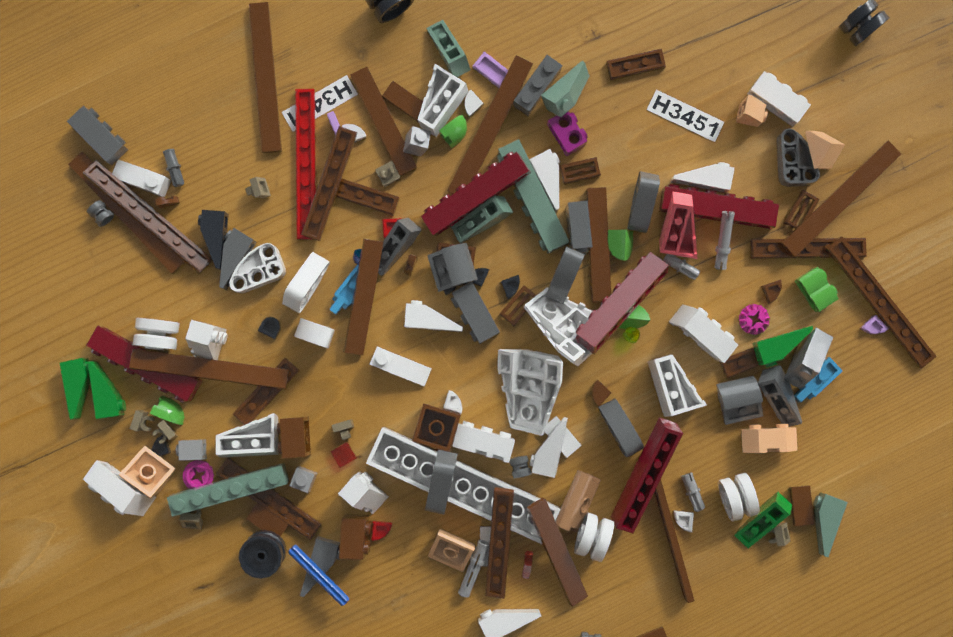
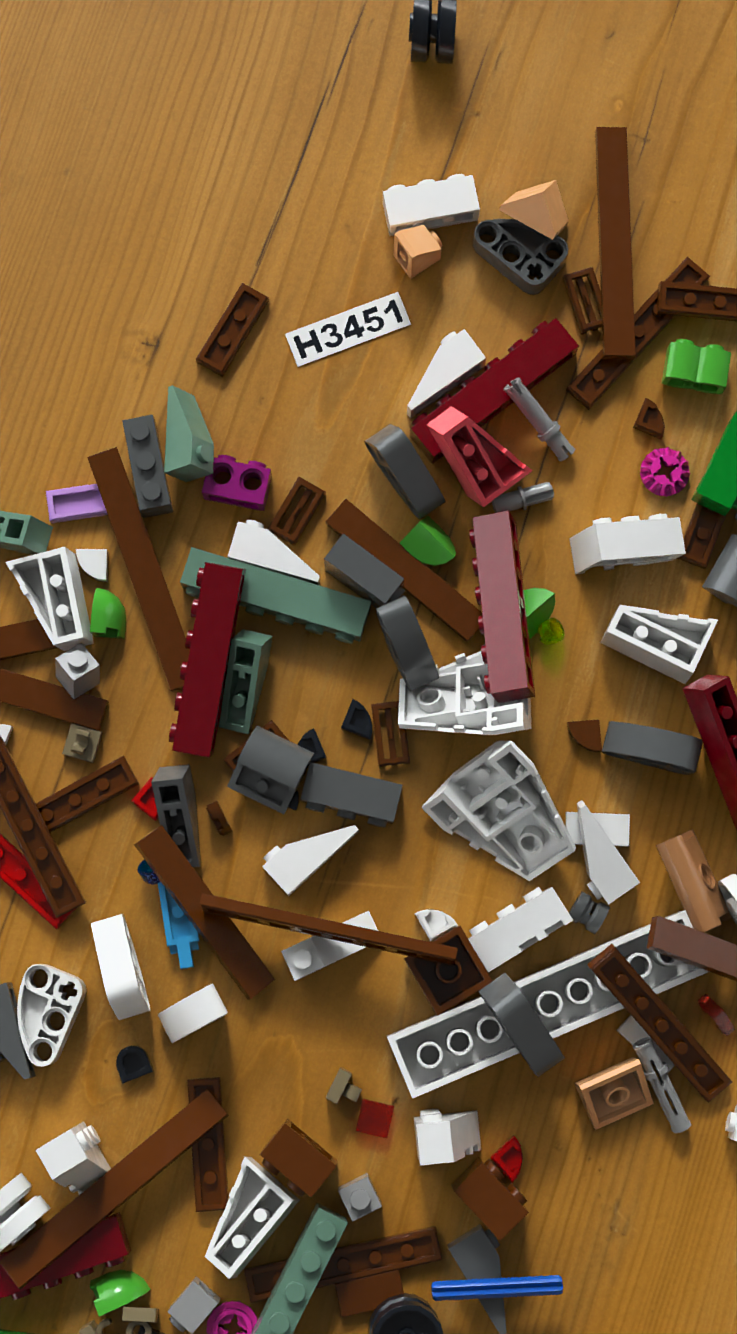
camera: 50 degrees left, 5 degrees down
(405, 358) = (329, 929): none -> reddish brown tile

